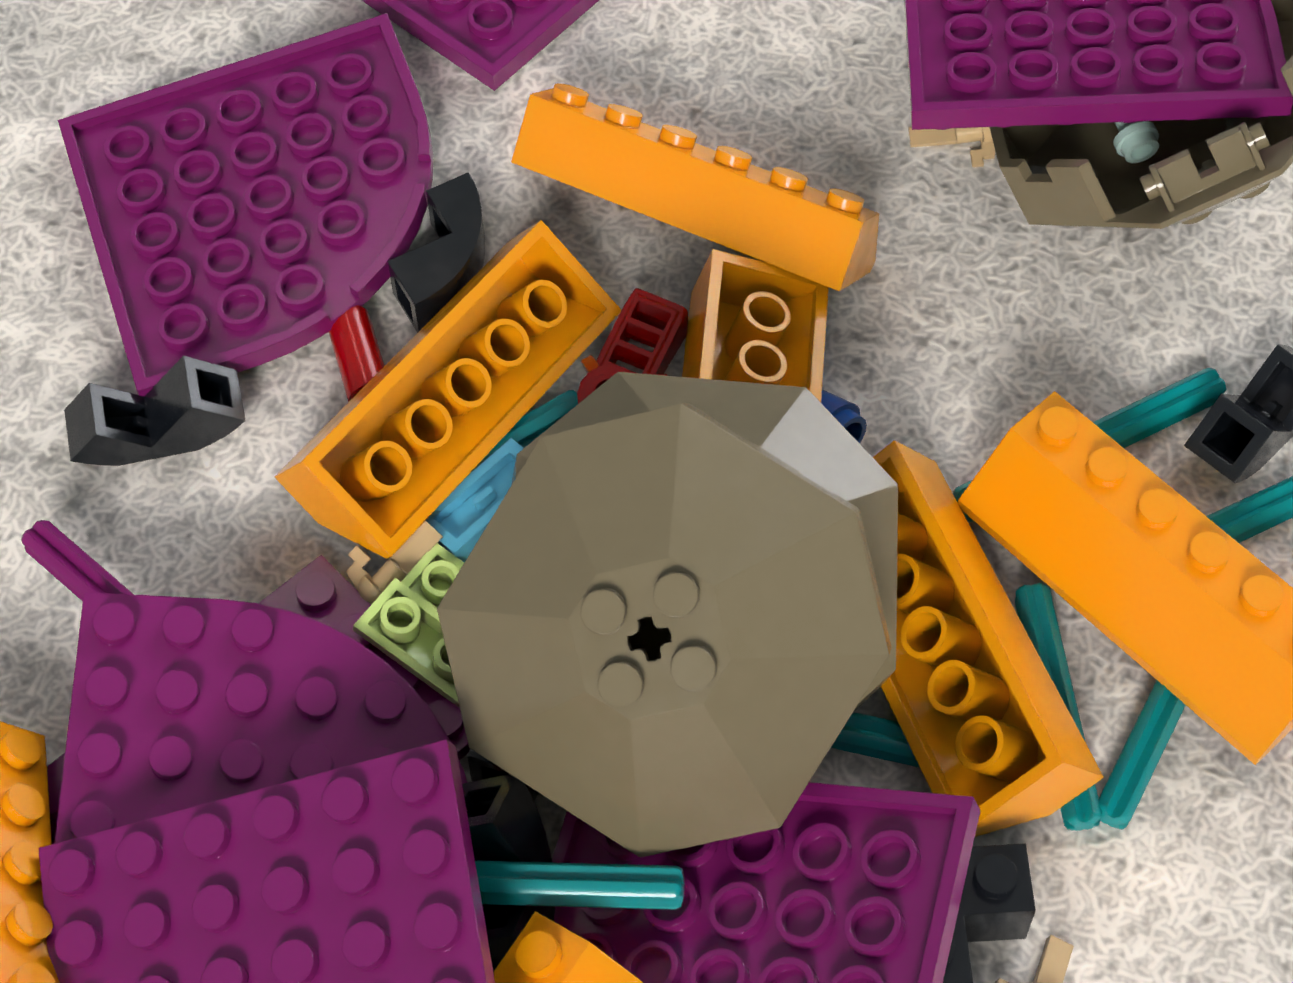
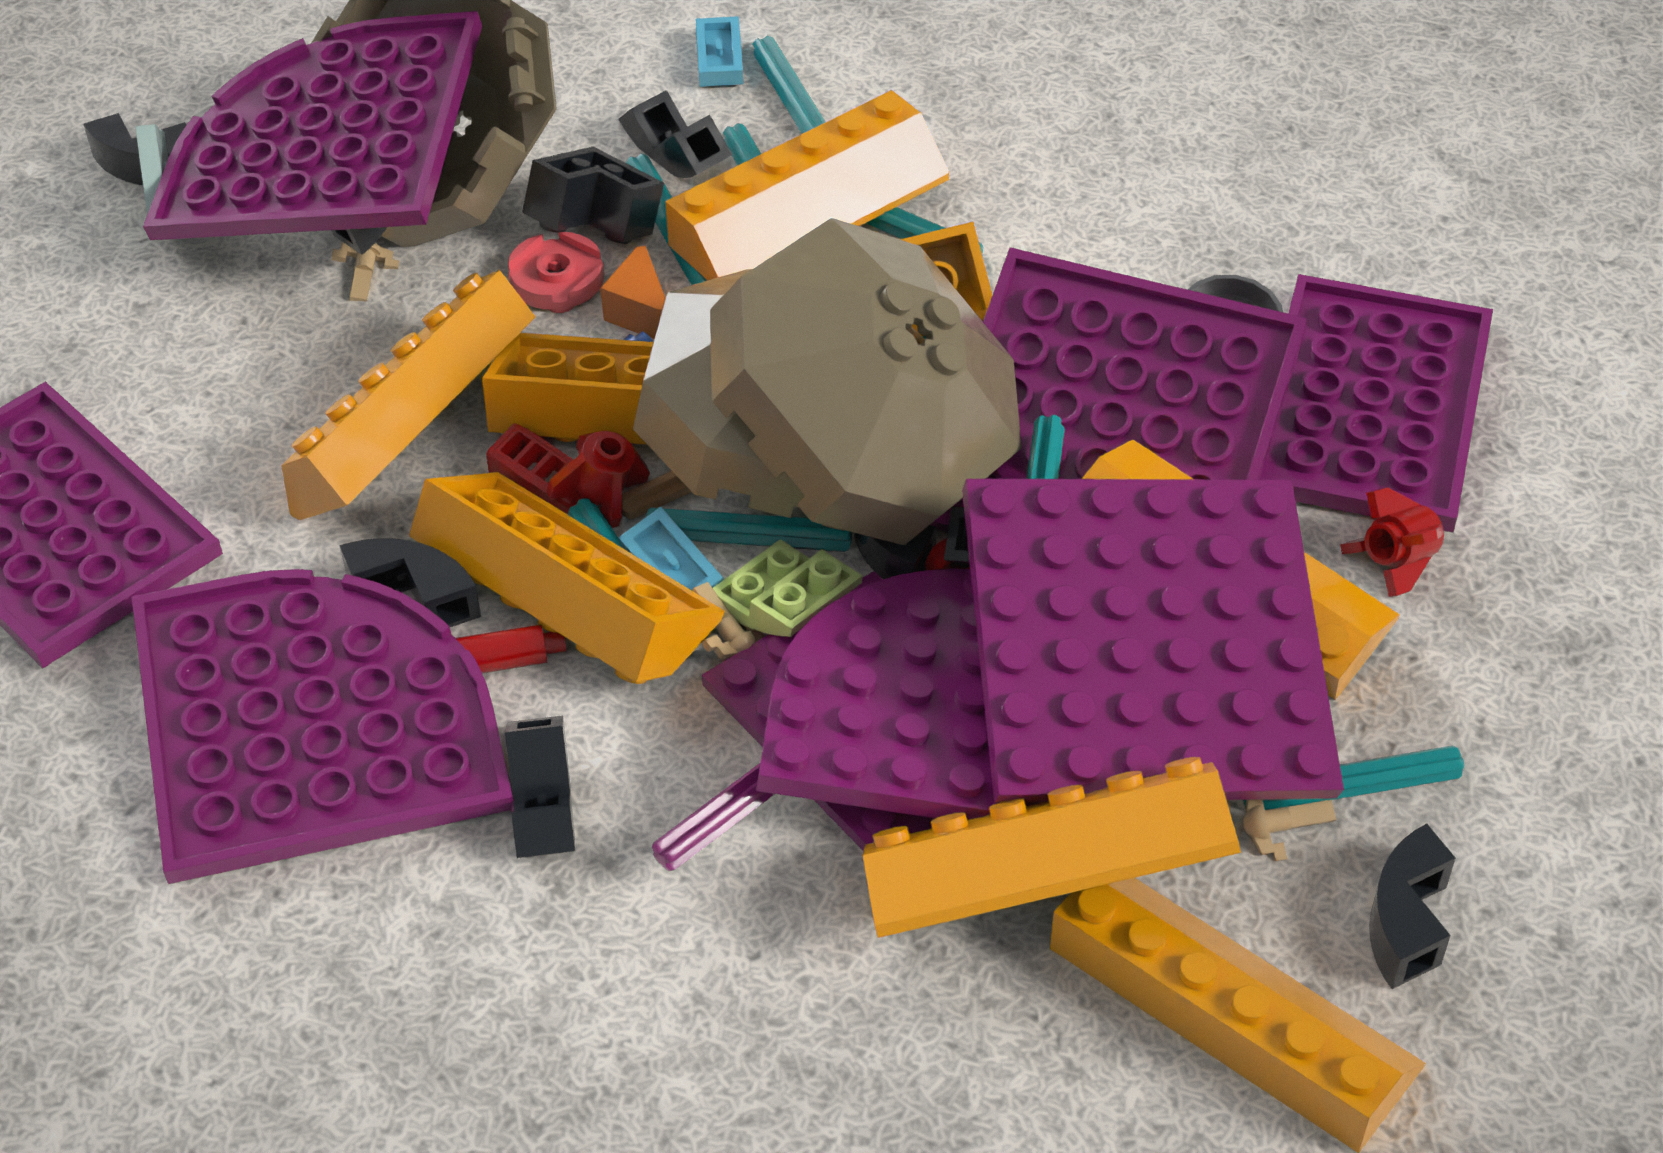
camera: 85 degrees left, 10 degrees down
(947, 408) = (634, 295): none -> orange slope
(977, 350) = (559, 290): none -> coral plate
(1111, 320) = (593, 191): none -> black brick

